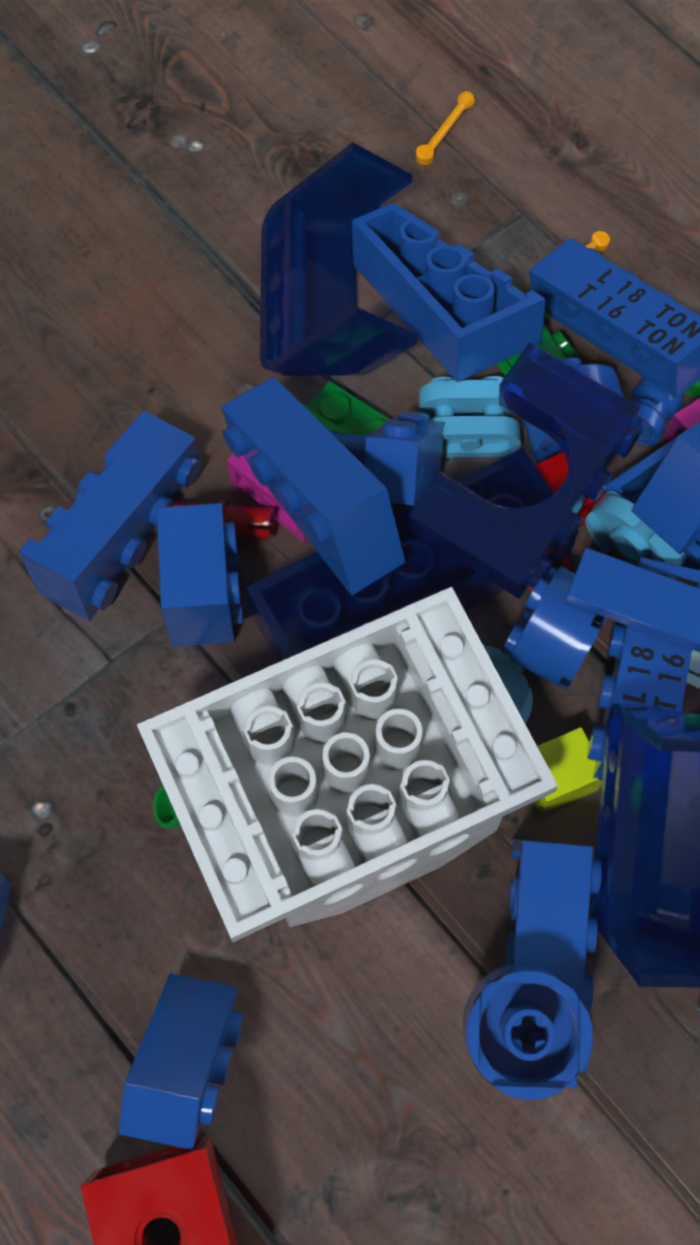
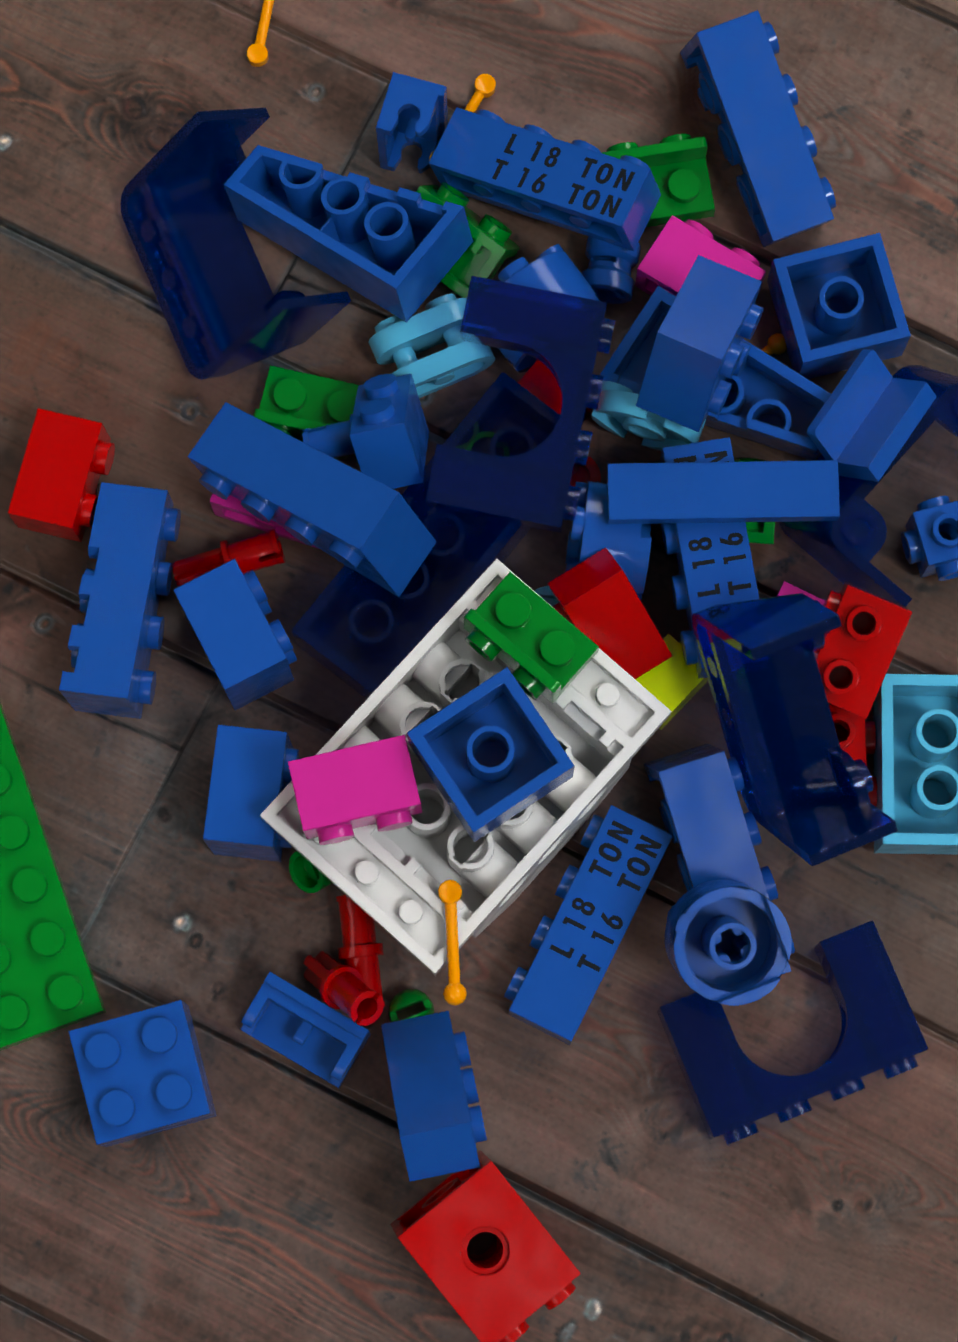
camera: 20 degrees left, 10 degrees up
(100, 949) = (304, 1030): none -> blue hinge
(113, 393) = (61, 475): none -> red brick
(144, 687) = (245, 779): none -> blue brick
(149, 925) = (343, 988): none -> red axle
(180, 906) = (360, 943): none -> red pin
(207, 960) = (407, 998): none -> green hinge
(231, 732) = (355, 790): none -> dark pink brick
(278, 868) = (450, 893): none -> light orange hinge
(370, 749) = (490, 754): none -> blue brick
(400, 963) = (589, 923): none -> blue brick
(452, 666) = (529, 639): none -> green bracket
(527, 229) = (411, 115): none -> blue hinge
(536, 677) = (609, 612): none -> red brick
(634, 1187) = (874, 1035): none -> clear blue arch

